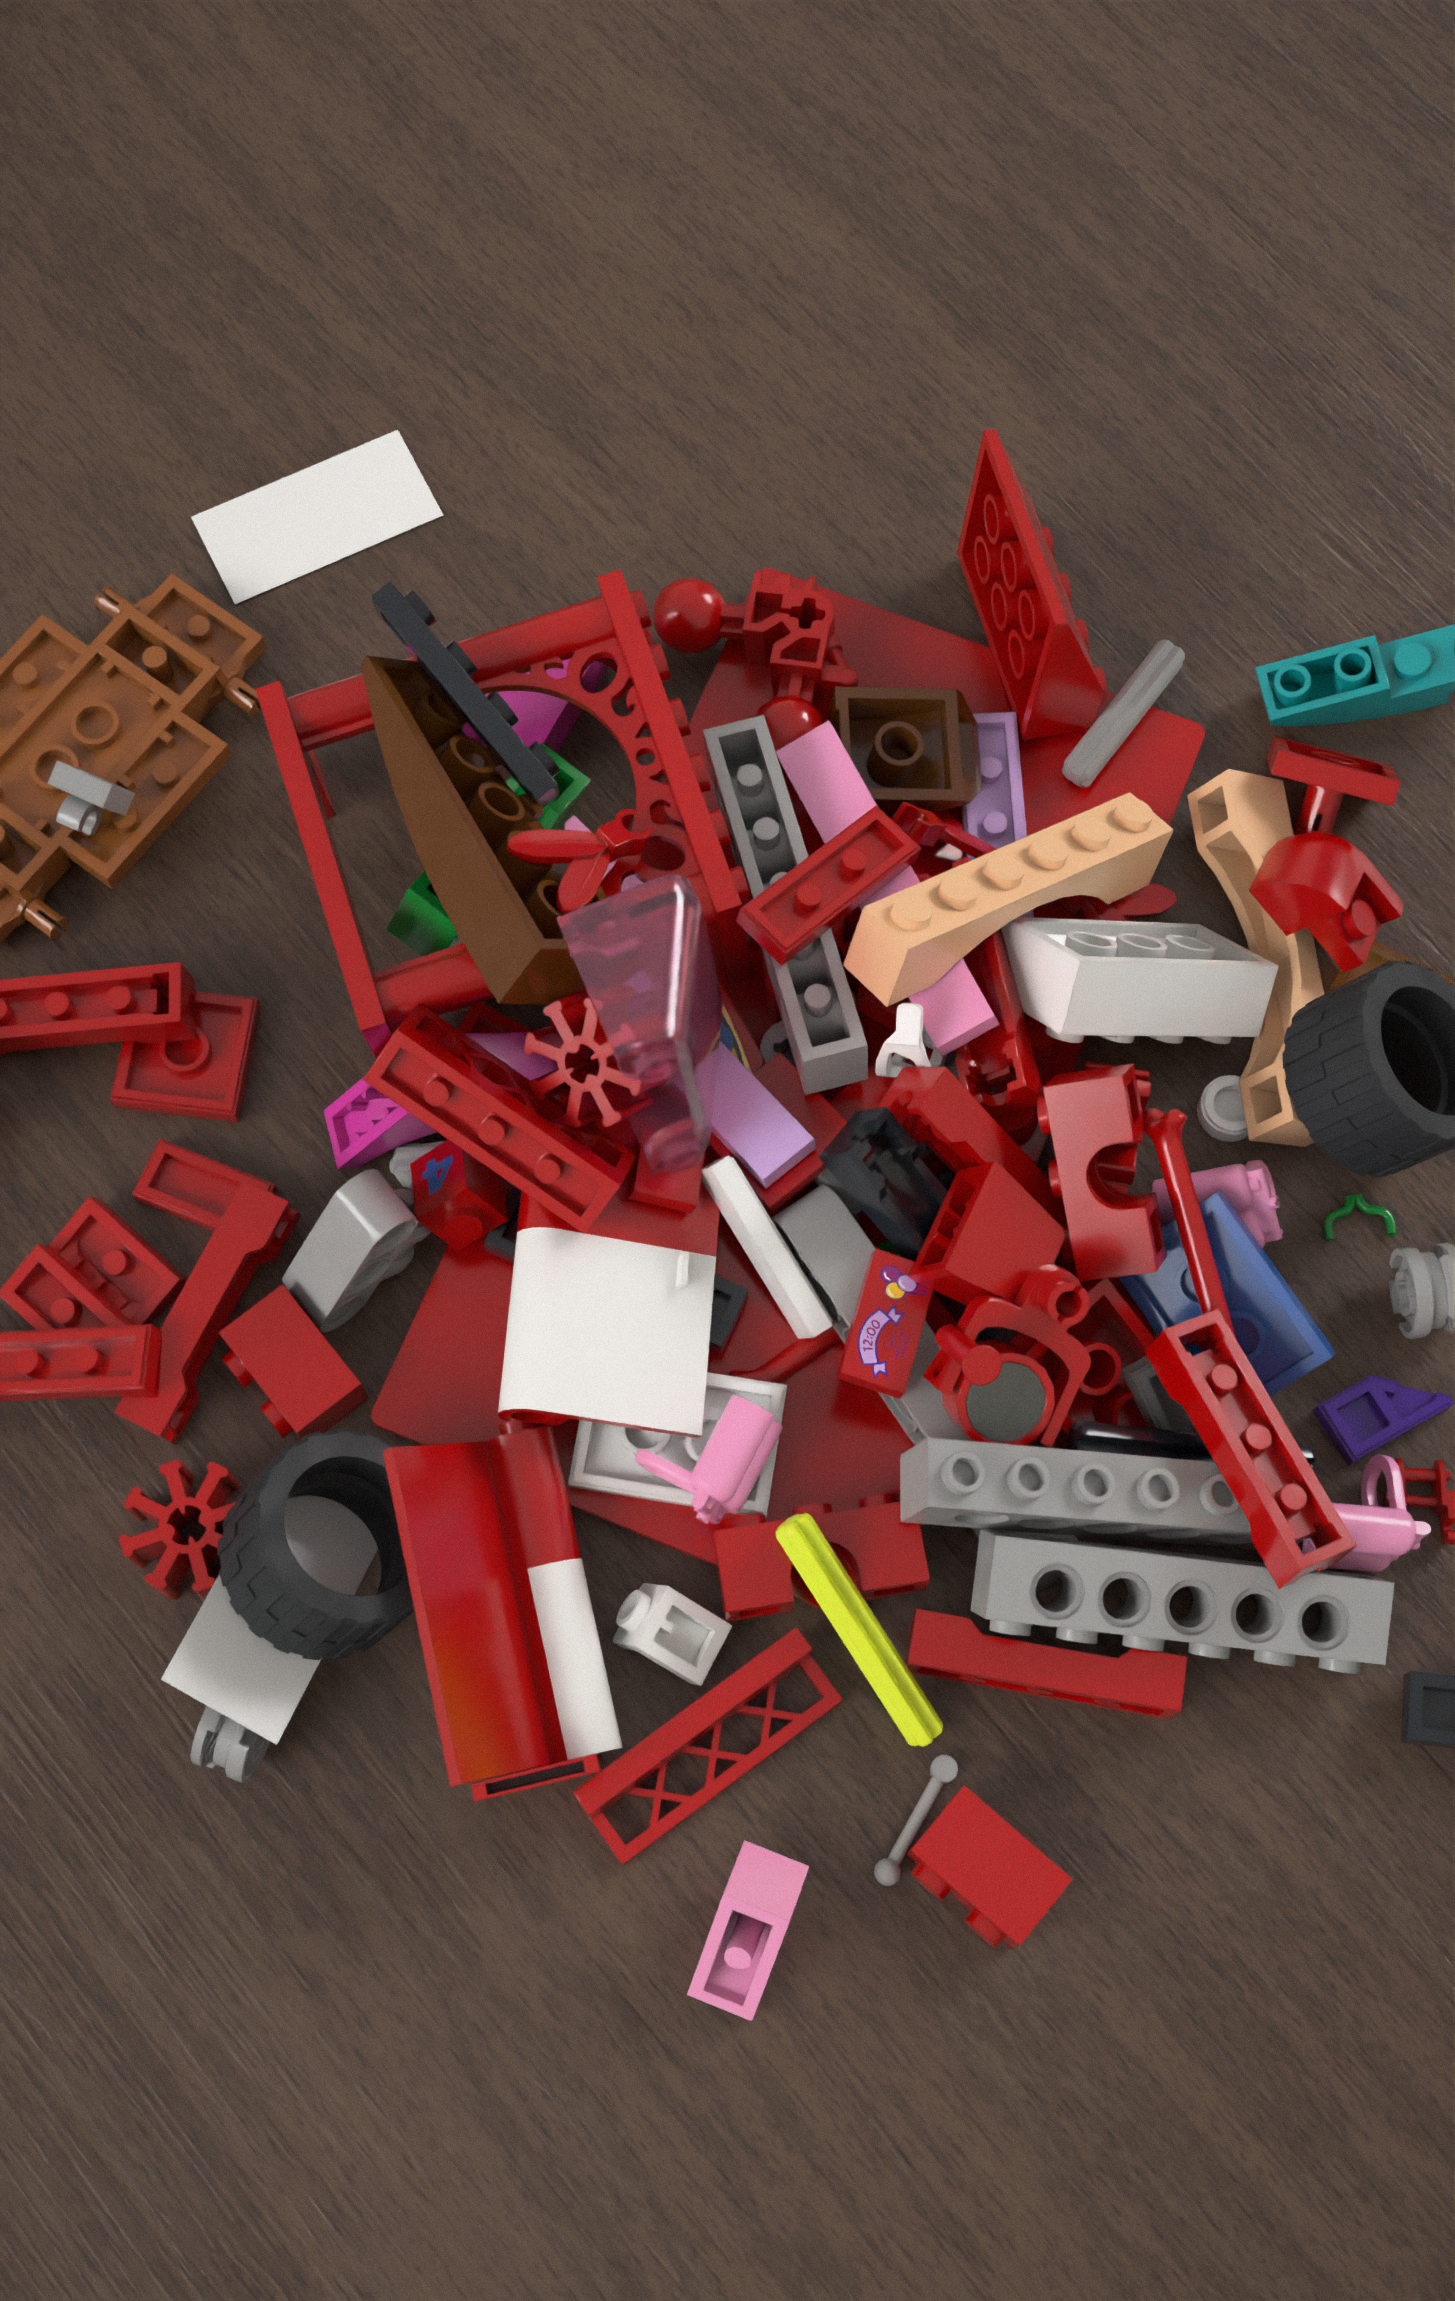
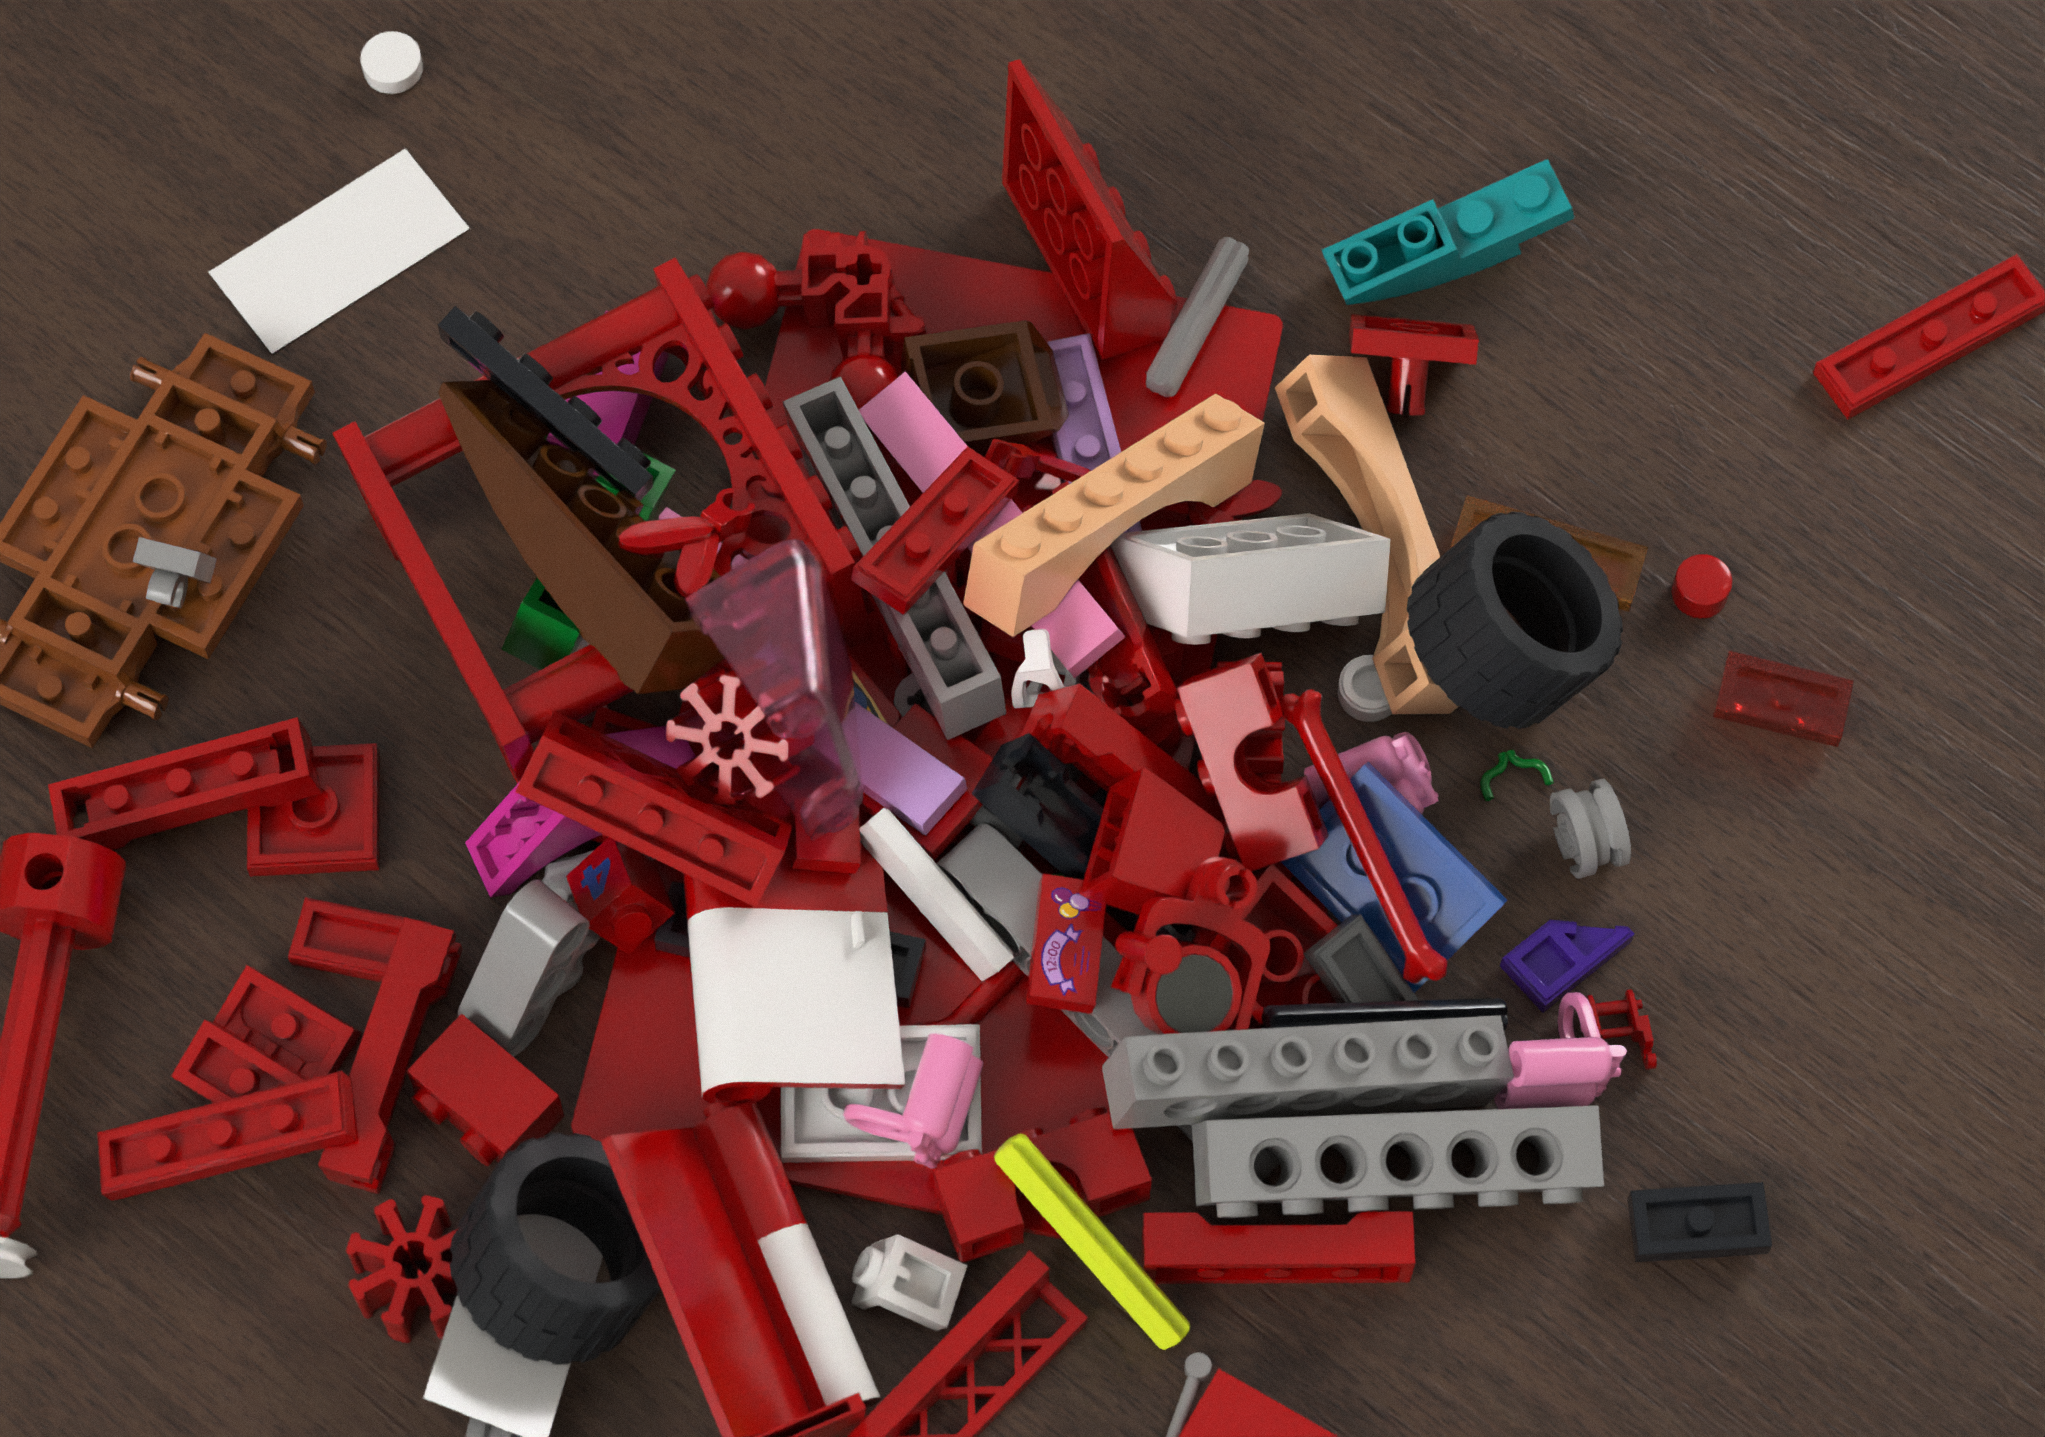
camera: 10 degrees left, 5 degrees down
(399, 345) = (391, 62): none -> white tile
(1250, 1447) = (1437, 998): red piece -> none
(1330, 890) = (1426, 456): red brick -> none

